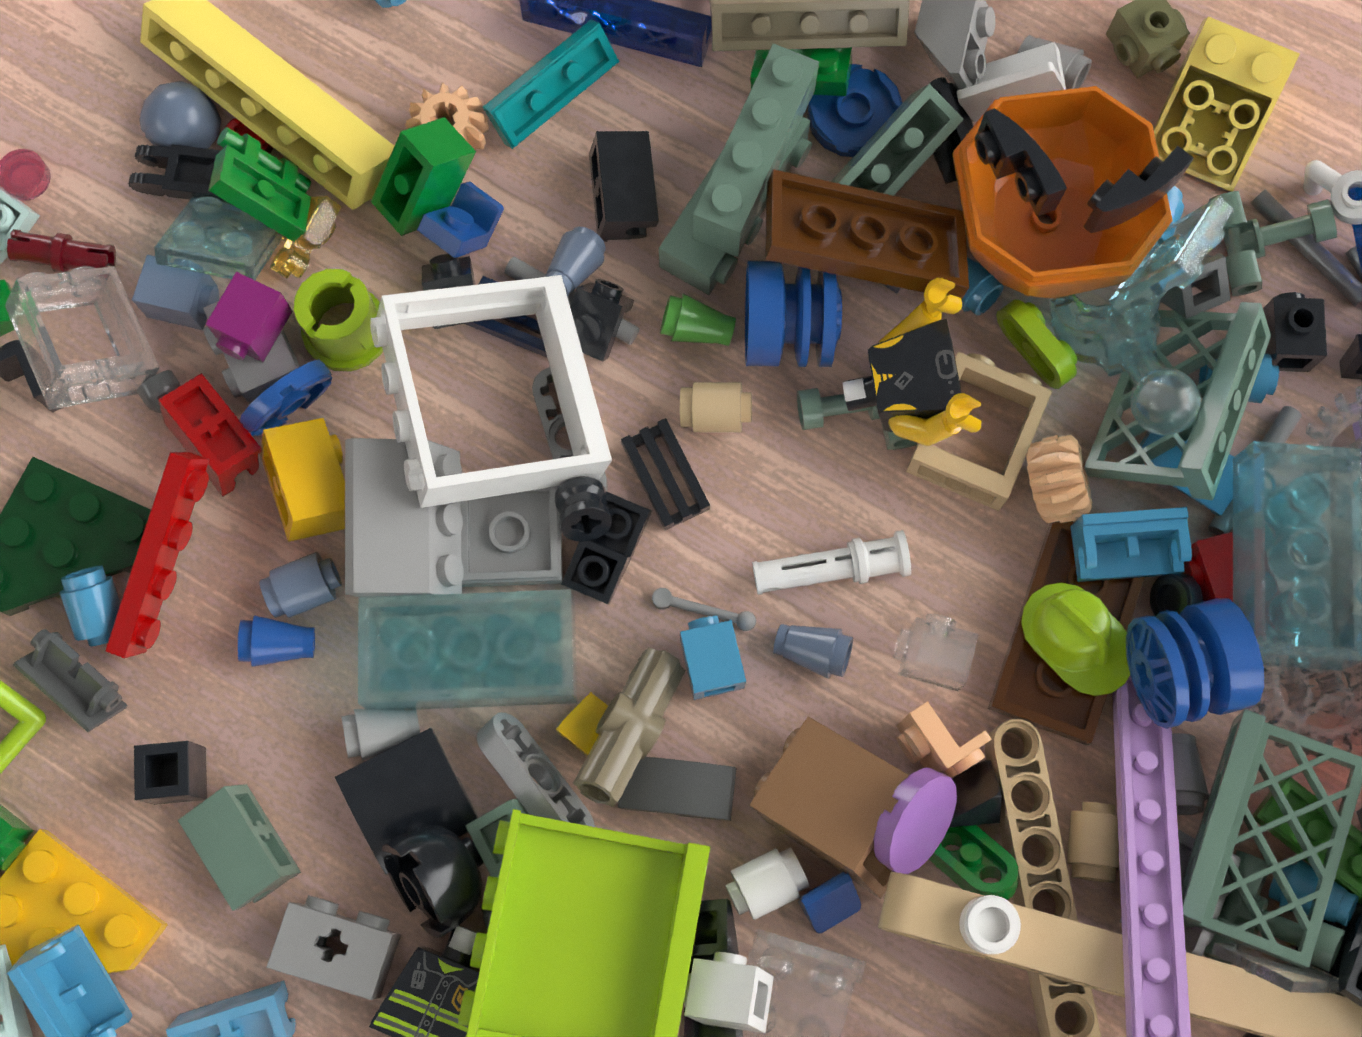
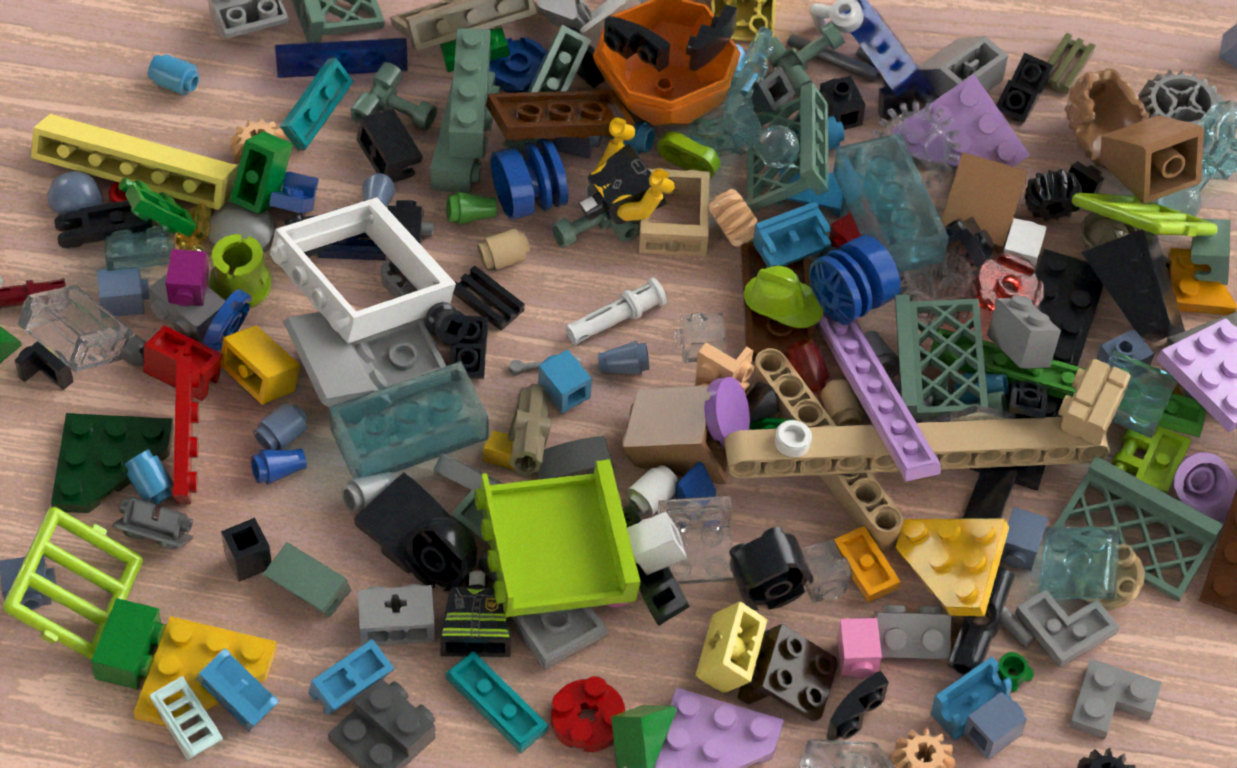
camera: 25 degrees left, 20 degrees down
(374, 250) = (238, 220): none -> light grey dish
(649, 104) = (384, 97): none -> sand green bar
(1071, 761) = (808, 363): none -> clear red brick

